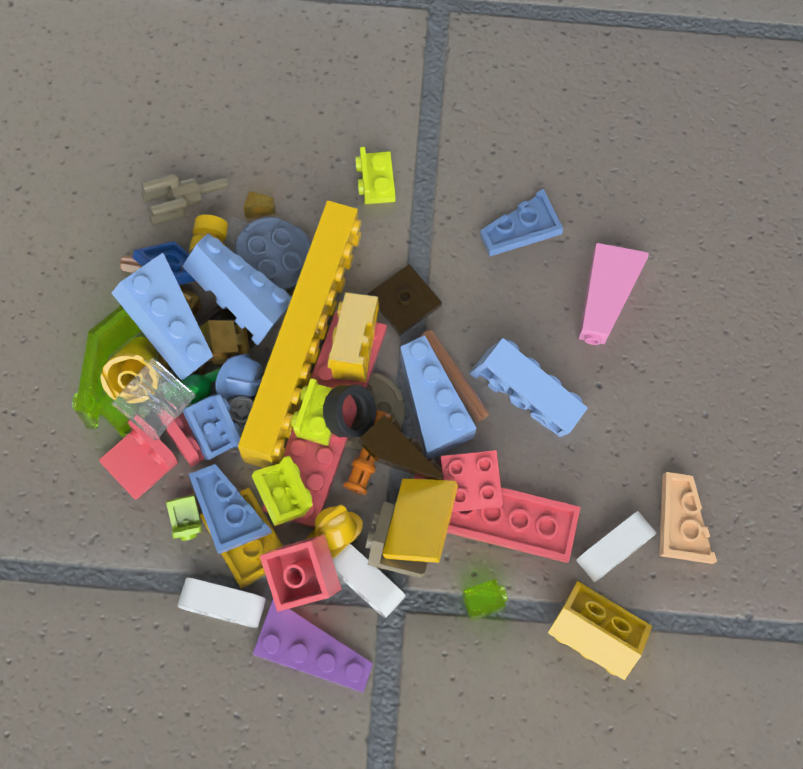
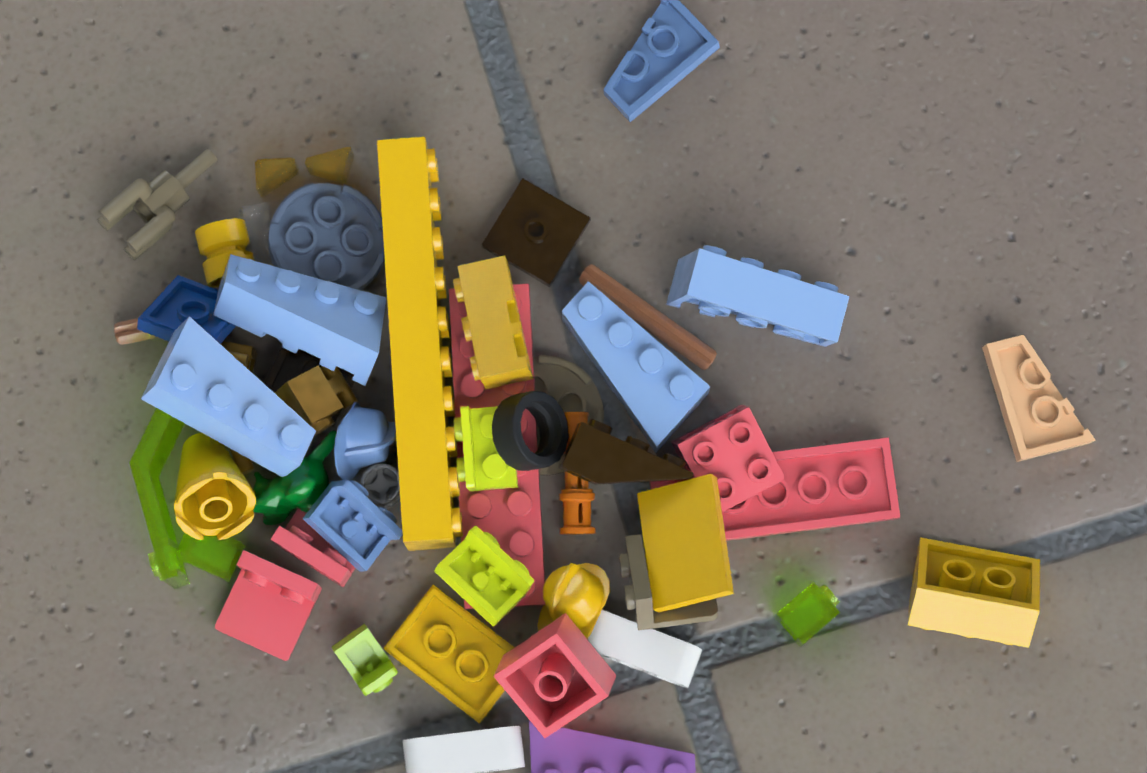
camera: 15 degrees left, 10 degrees up
(153, 399) = (262, 523): clear slope -> none
(225, 510) = (419, 632): medium blue wing -> none
(295, 212) = (331, 165): none -> clear yellow slope
(377, 177) = (422, 61): neon yellow bracket -> none
(608, 287) = (814, 106): bright pink slope -> none
(616, 546) = (955, 472): white beam -> none

